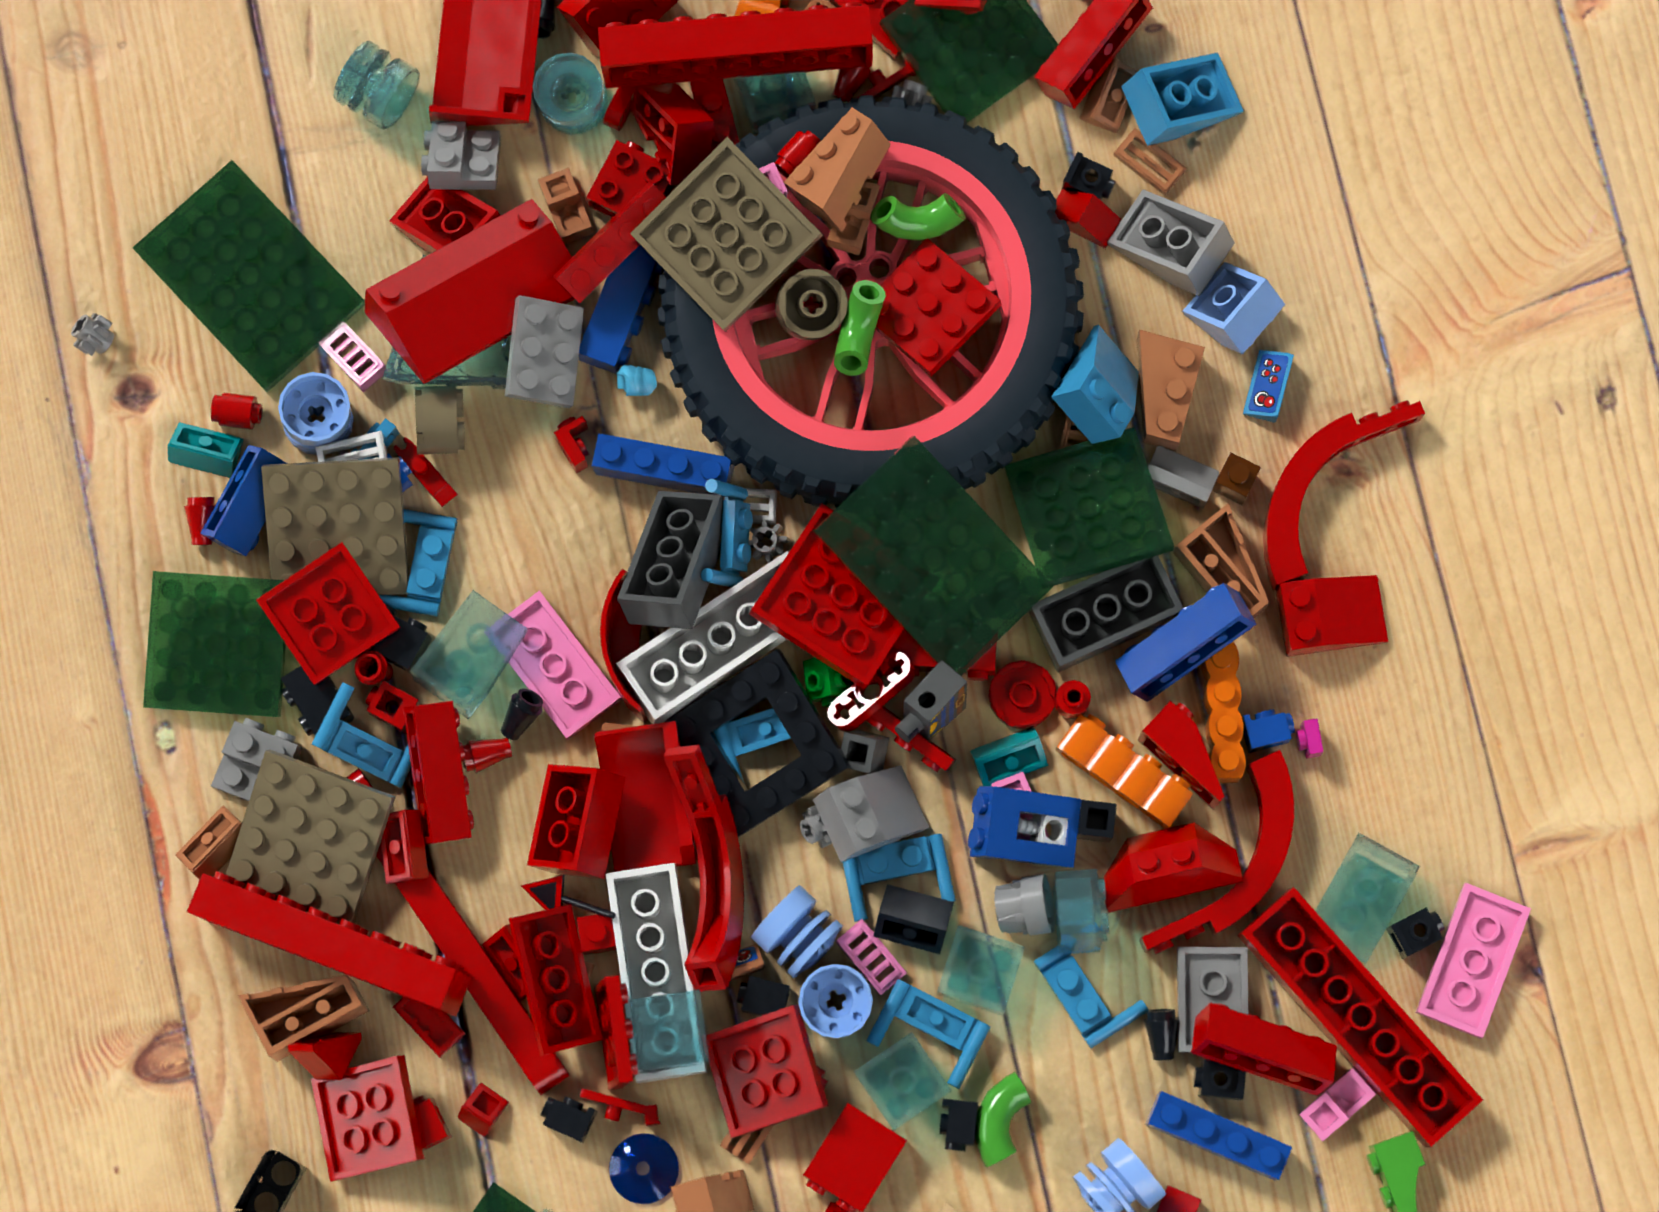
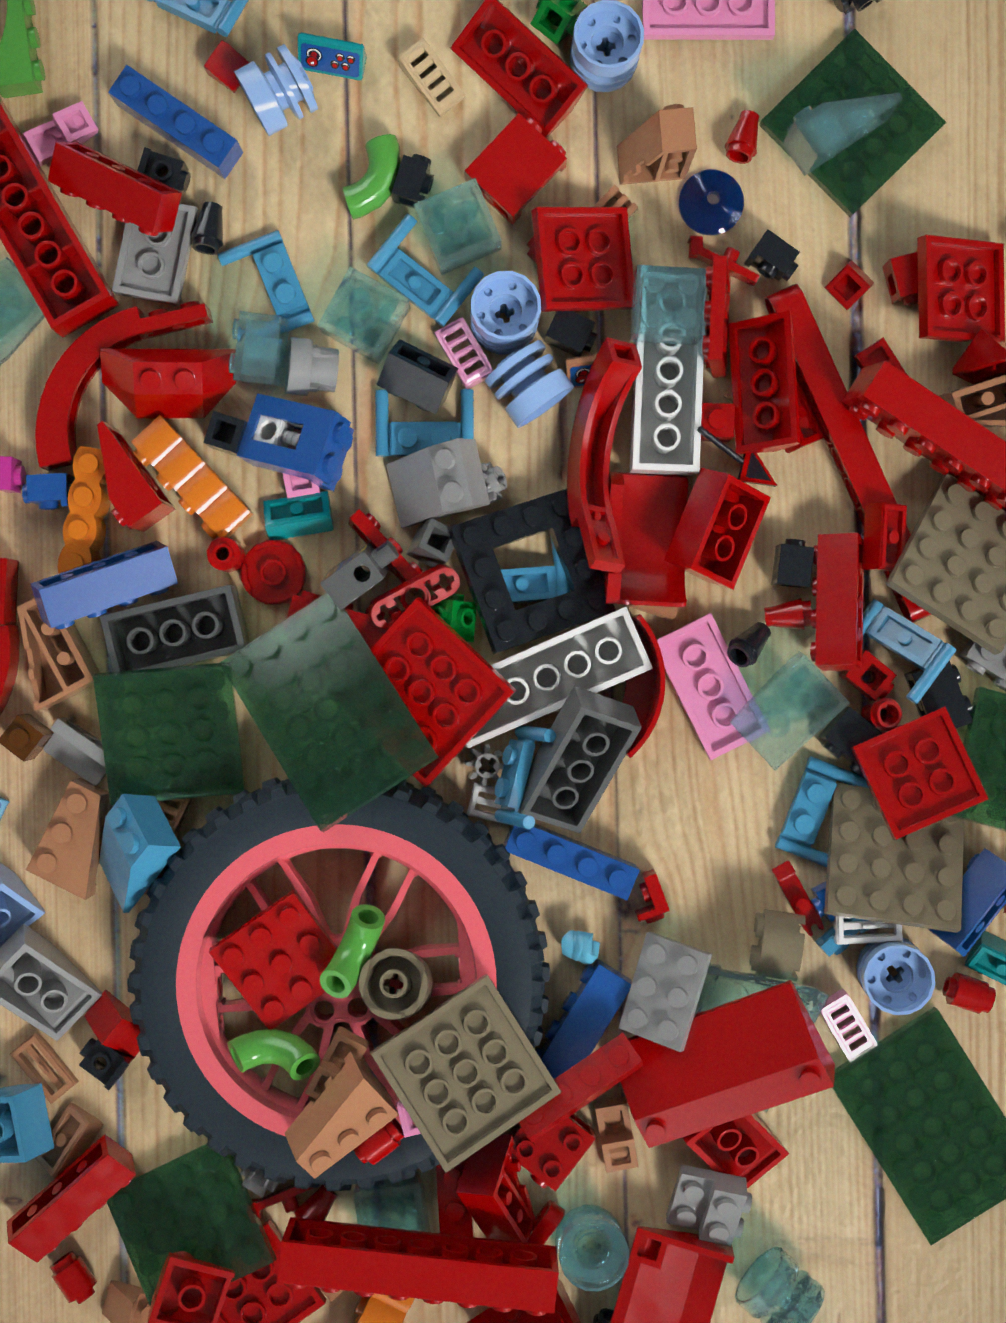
camera: 175 degrees left, 10 degrees up
(491, 804) = (792, 564): none -> black brick

